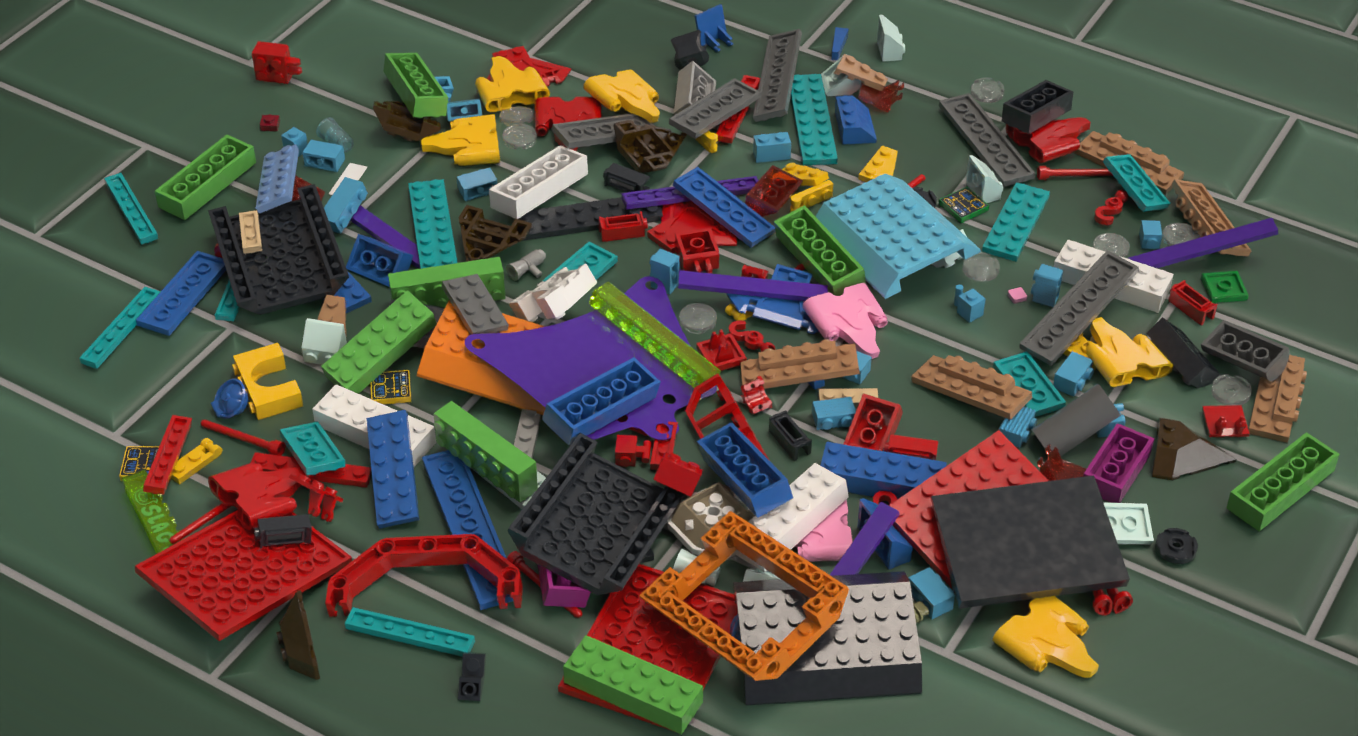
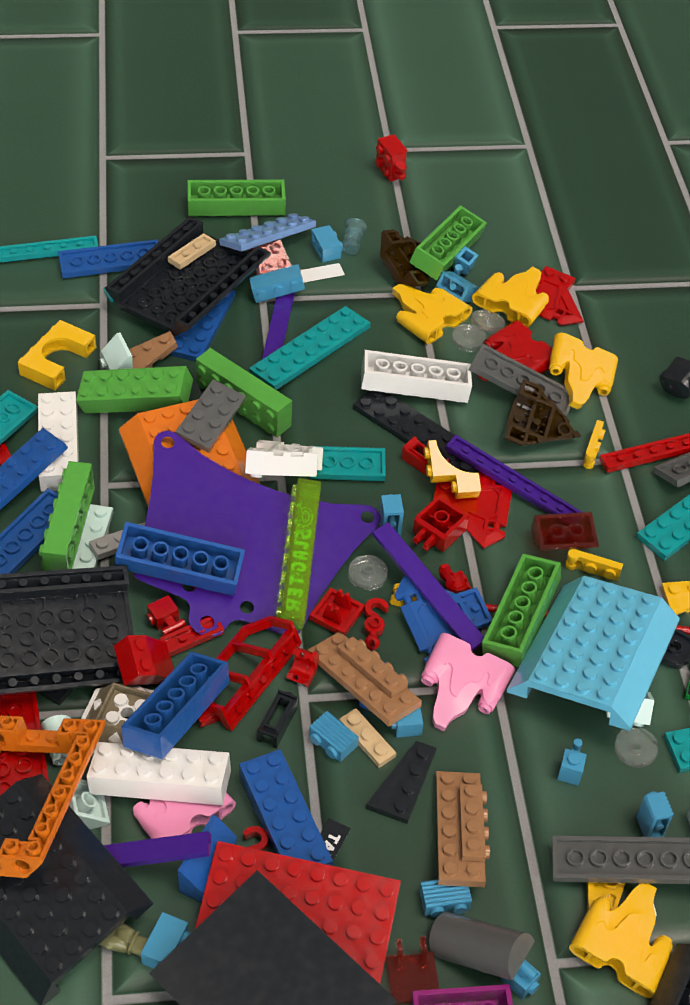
camera: 50 degrees right, 5 degrees up
(131, 208) = (171, 183): teal plate -> none
(230, 399) = (17, 346): blue piece -> none
(269, 122) = (335, 197): dark red plate -> none
(293, 137) = (322, 216): dark azure brick -> none
(377, 259) = (242, 338): blue slope -> none
(391, 387) = (108, 426): tile -> none
(476, 183) = (383, 341): dark azure brick -> none
(486, 237) = (324, 381): dark brown wedge -> none
(527, 263) = (323, 426): light grey piece -> none
(625, 179) = (483, 430): black window -> none
(651, 218) = (462, 483): none -> arch
(692, 86) = (636, 414): light grey slope -> none
(714, 108) = (624, 433): dark grey plate -> none
(724, 207) = (511, 510): blue plate -> none
(772, 147) = (627, 501): dark azure brick -> none
(810, 176) = (611, 541): yellow wing -> none
(873, 423) = (341, 777): red slope -> none
(912, 446) = (336, 825): red window -> none
(915, 407) = (402, 787): none -> black wing
(1017, 295) = (630, 799): bright pink piece -> none
(1031, 377) = (512, 876): teal plate -> none
(1073, 374) = (560, 907): dark azure brick -> none

